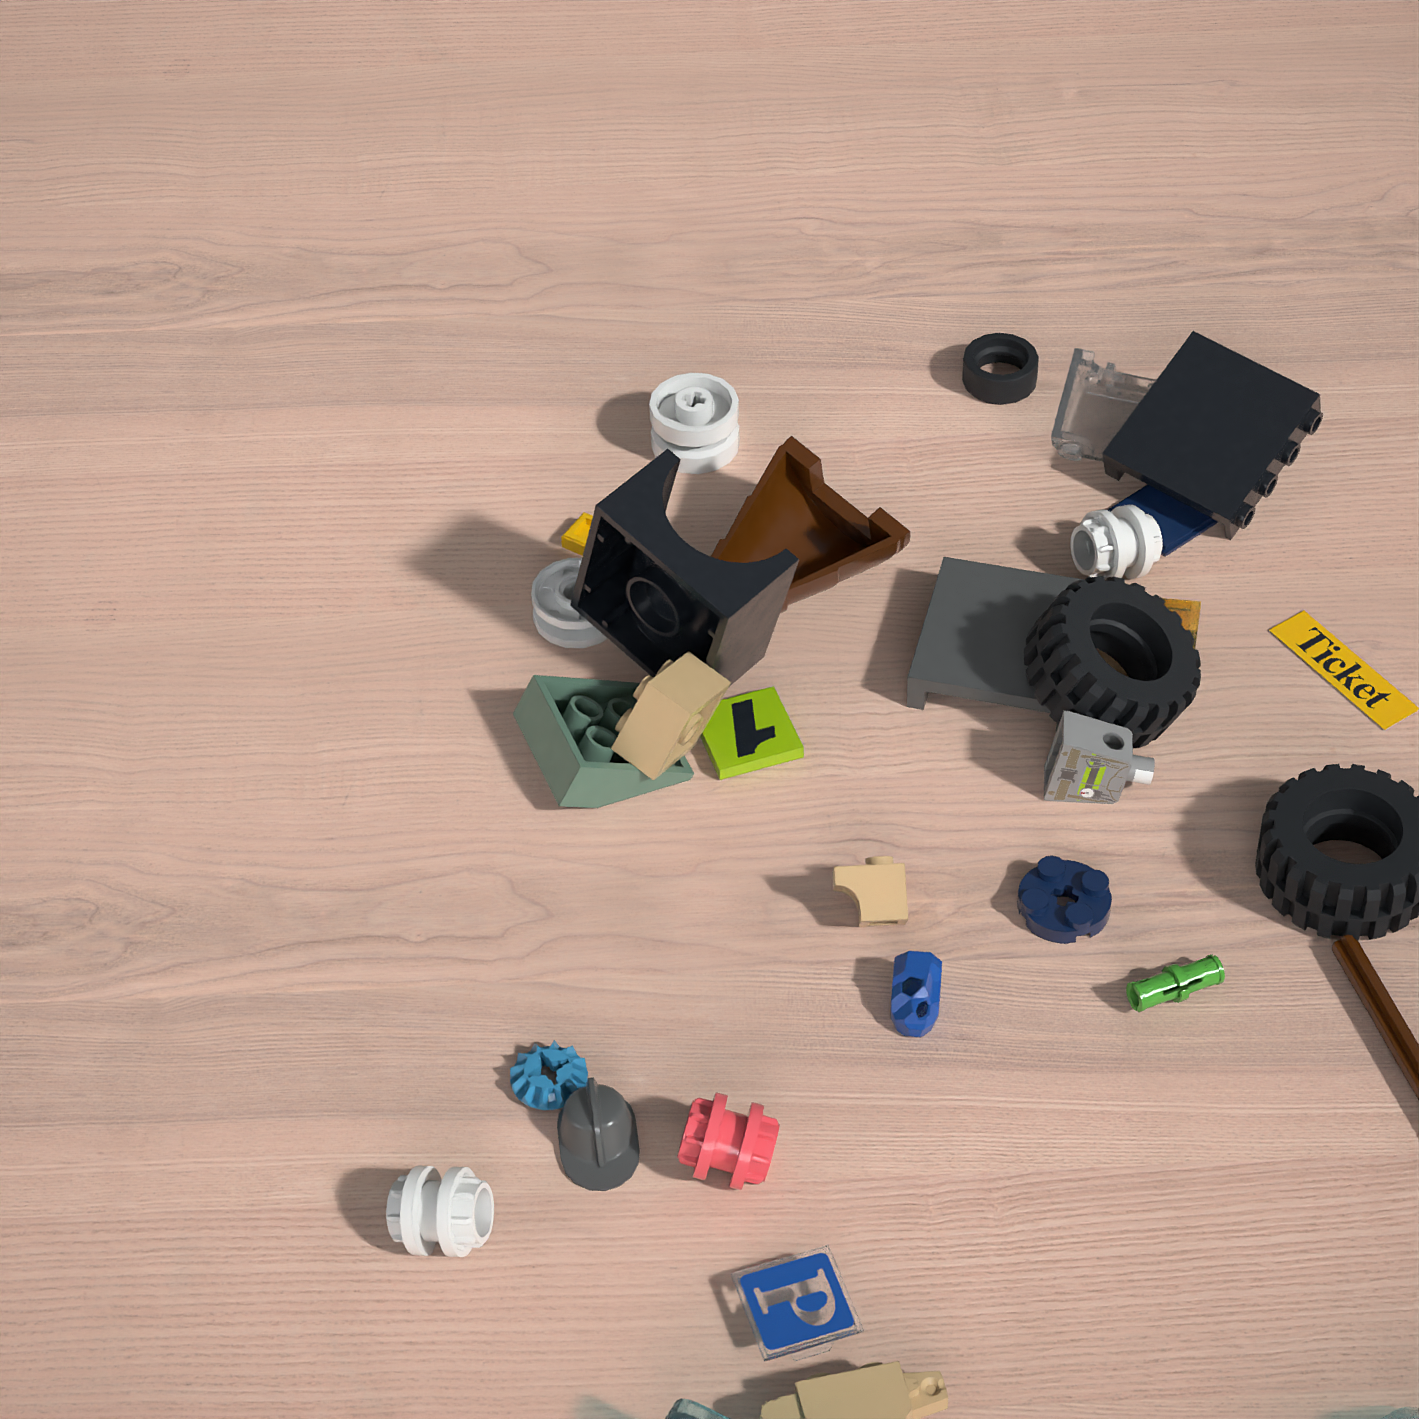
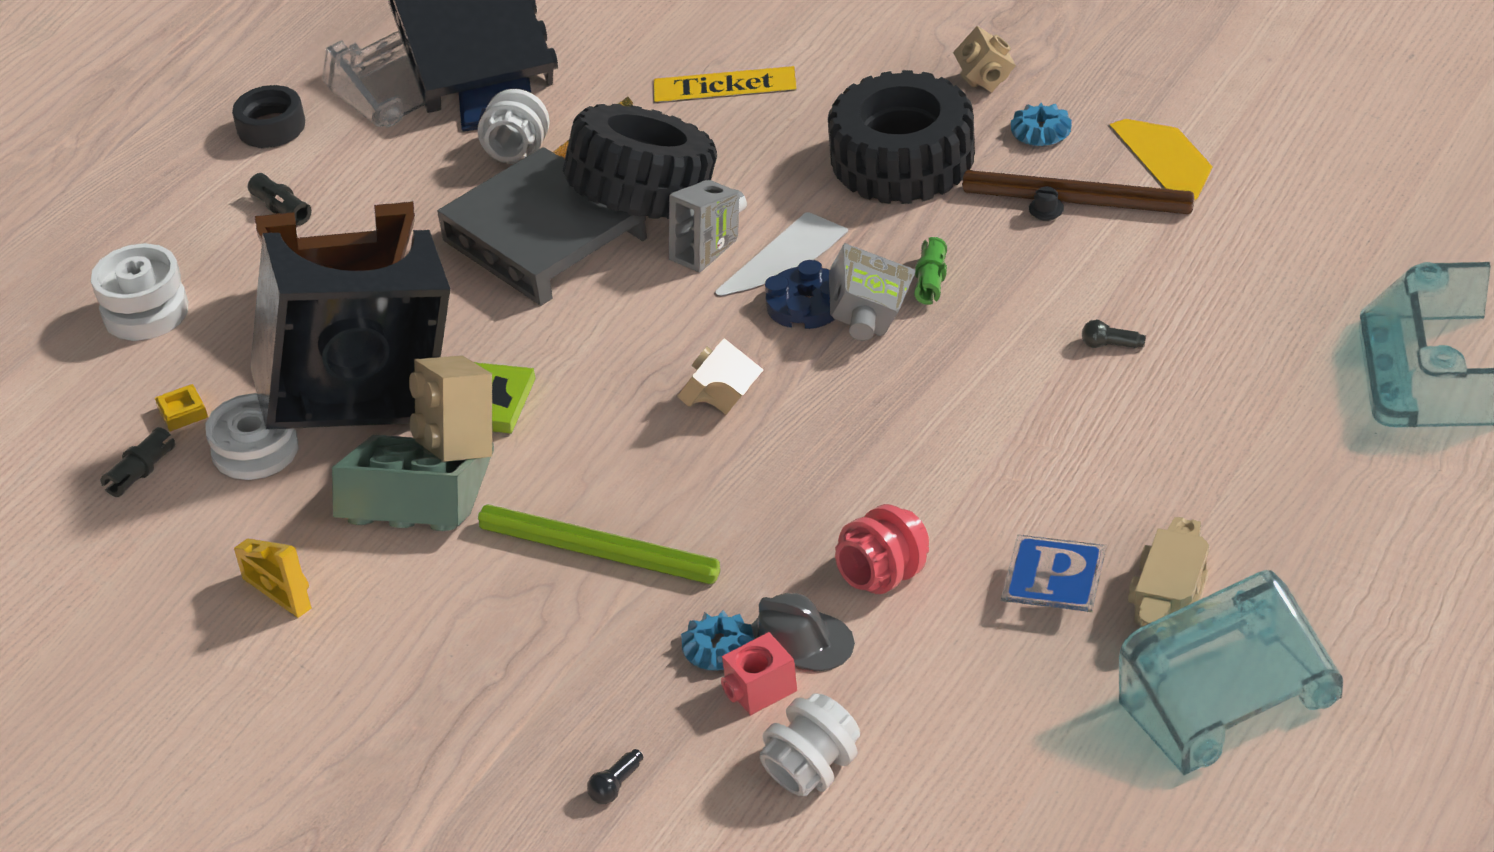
camera: 55 degrees left, 5 degrees down
(322, 1084) = (605, 785): none -> black piece
(415, 714) = (274, 572): none -> yellow wing
(498, 548) = (137, 462): none -> pearl dark grey pin
(531, 1132) = (758, 674): none -> coral brick
(613, 923) = (599, 544): none -> lime axle
(898, 442) = (266, 190): none -> pearl dark grey pin
(916, 992) = (823, 402): blue rock -> none
(1083, 947) = (866, 291): none -> light grey torso
(1126, 854) = (799, 242): none -> white sticker
(1189, 1176) = (1098, 334): none -> pearl dark grey piece
(1361, 1033) = (1046, 204): none -> black piece

